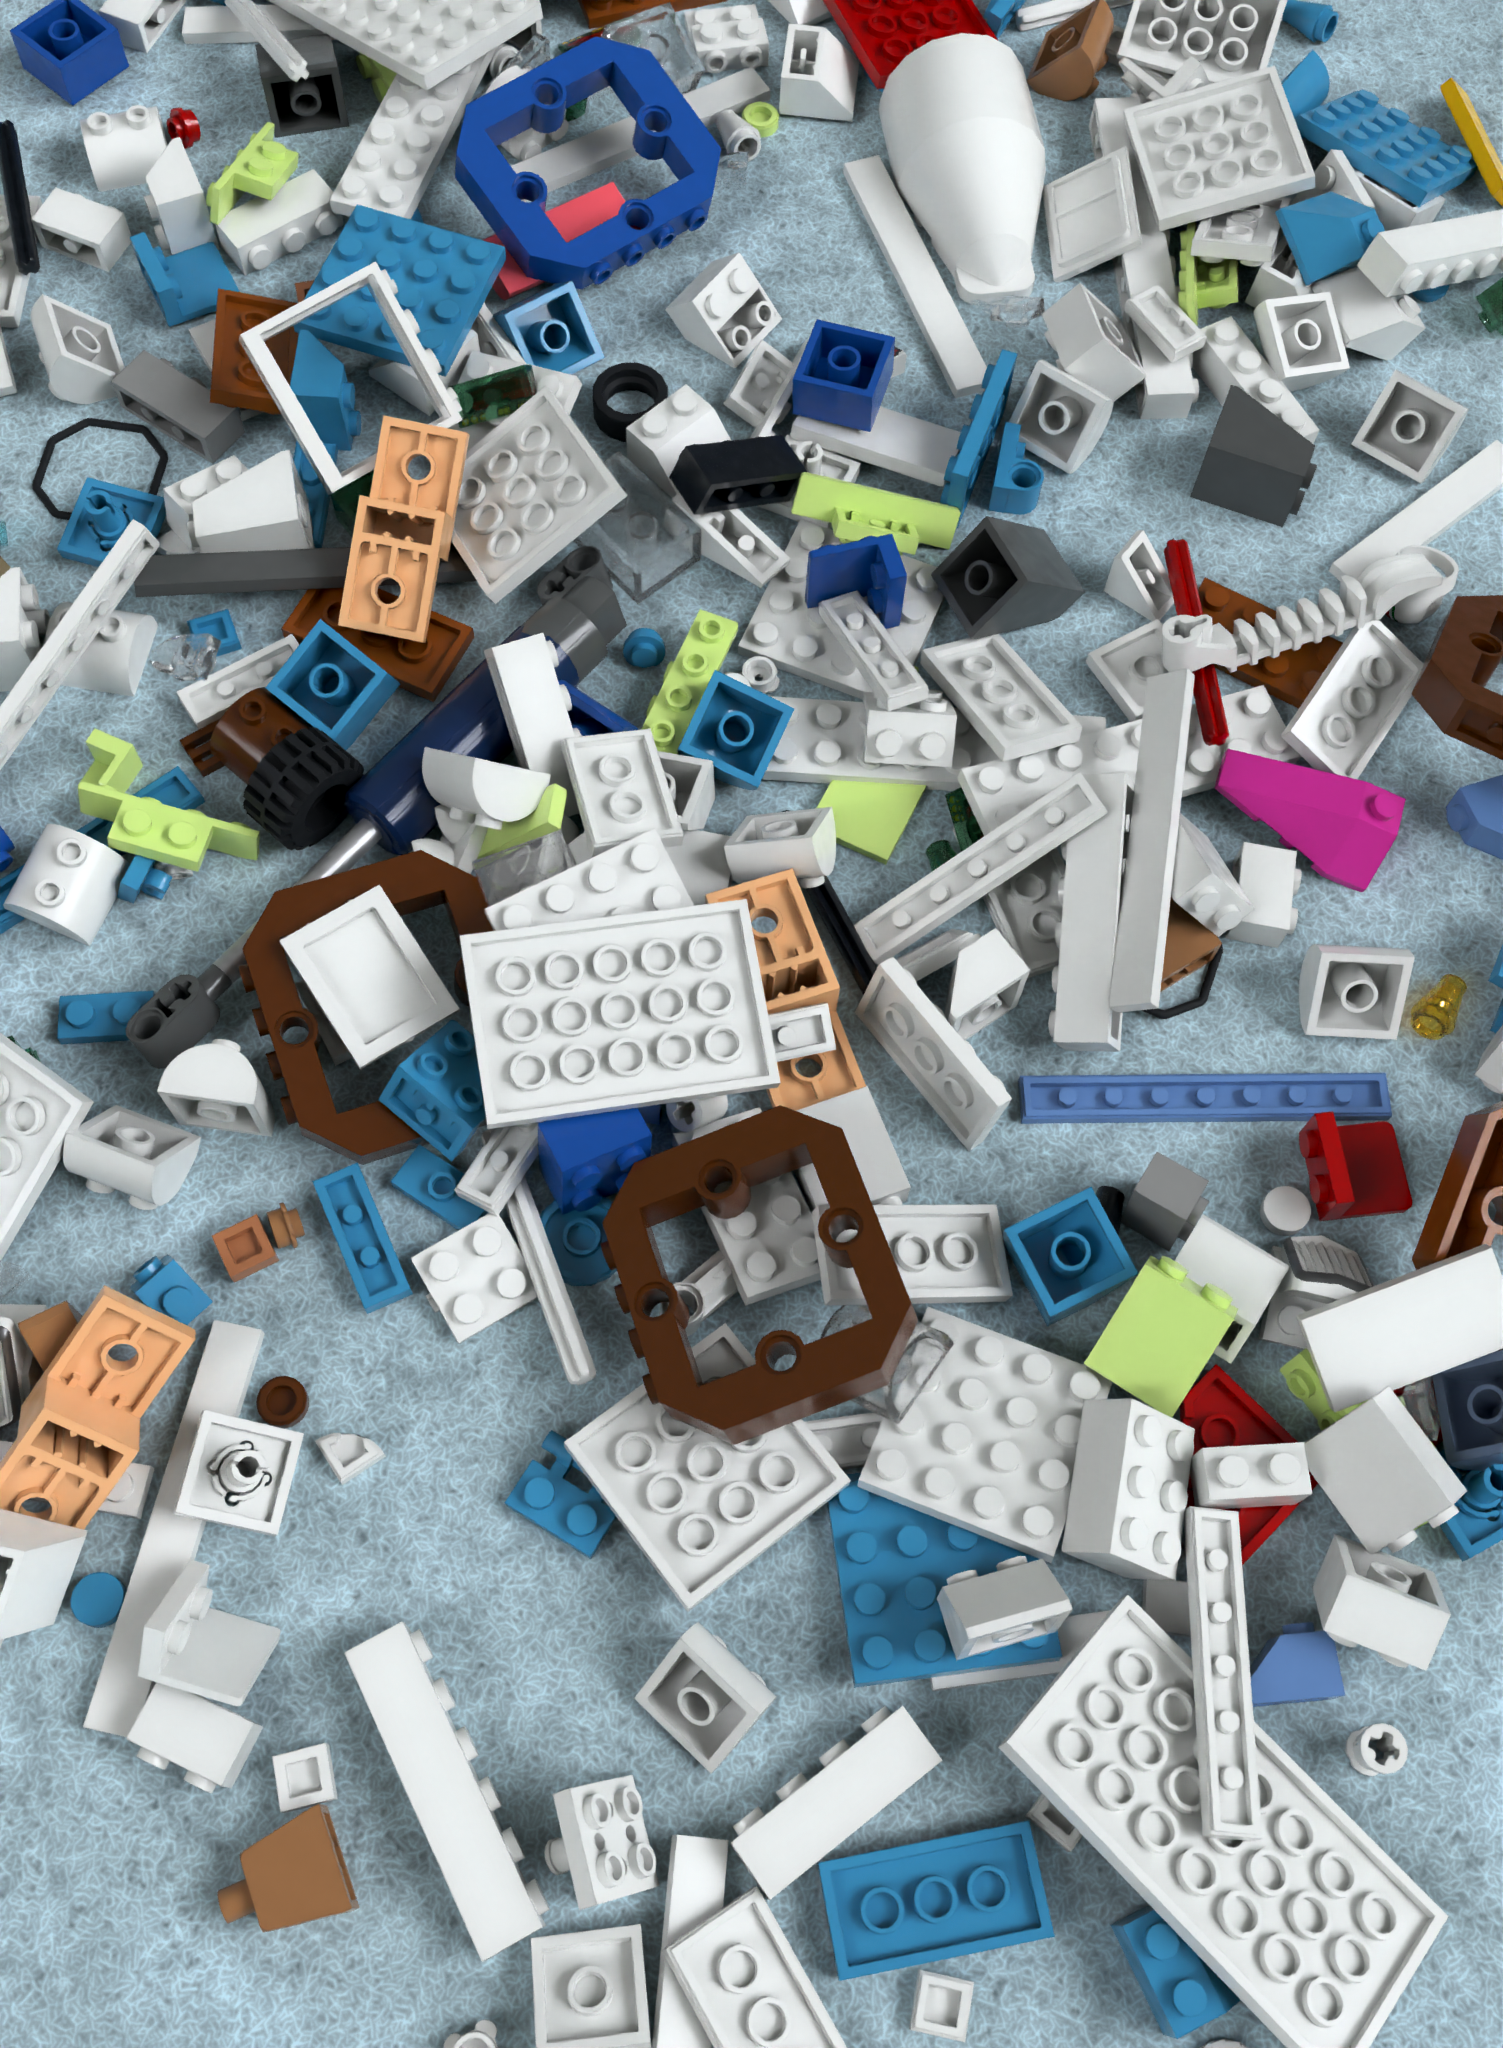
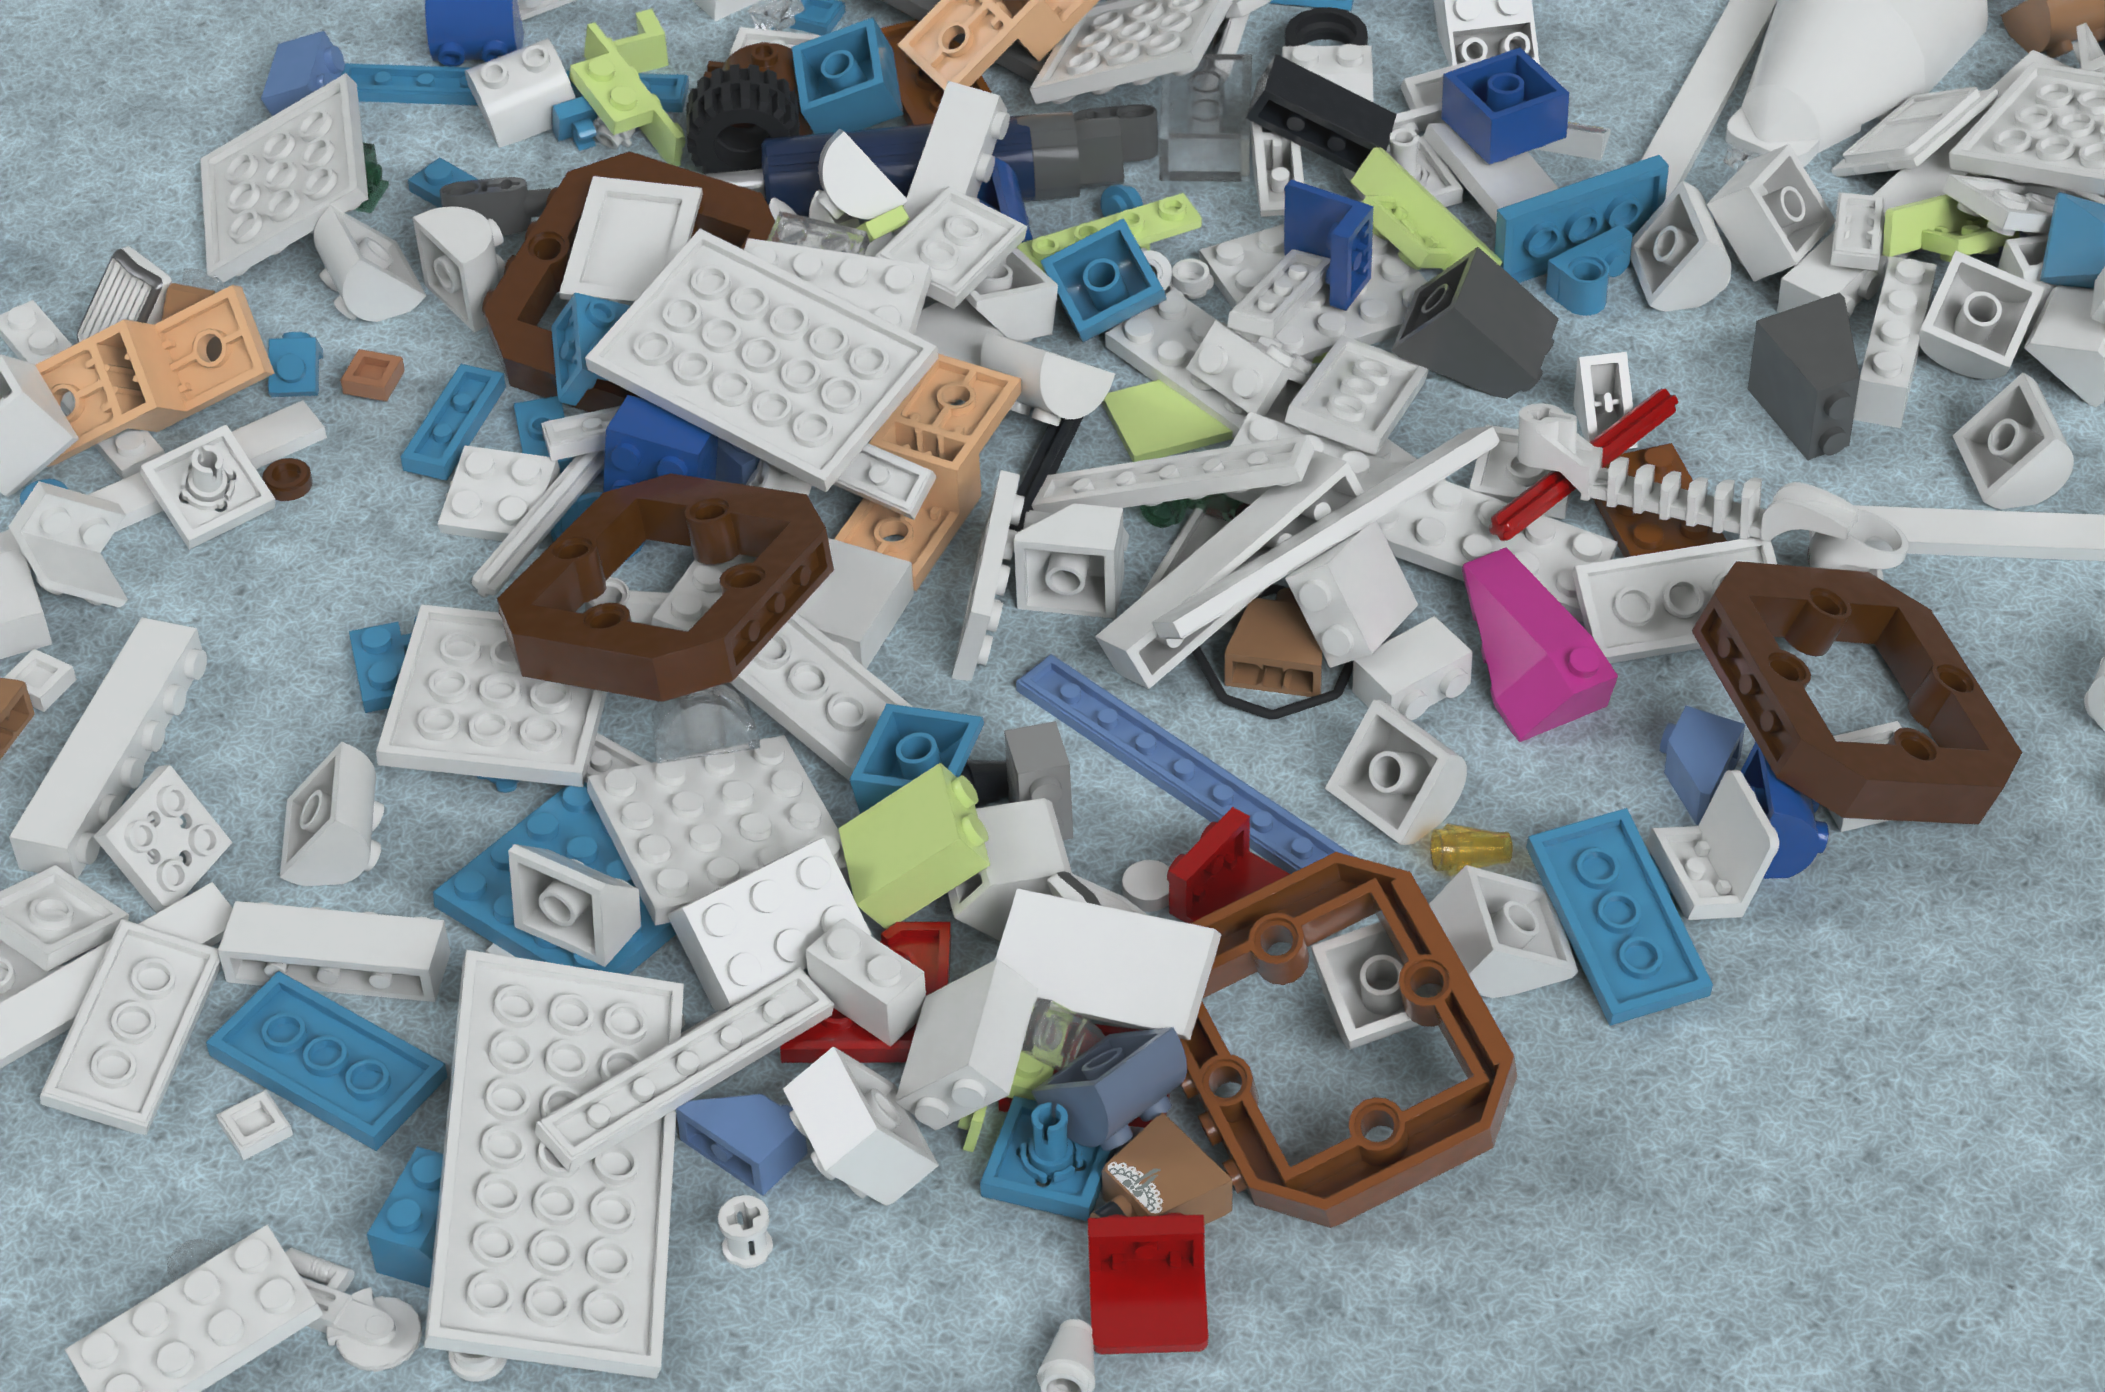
camera: 50 degrees right, 20 degrees down
(285, 1226) = (413, 381): medium nougat plate -> none
(349, 1454) = (289, 538): white tile -> none

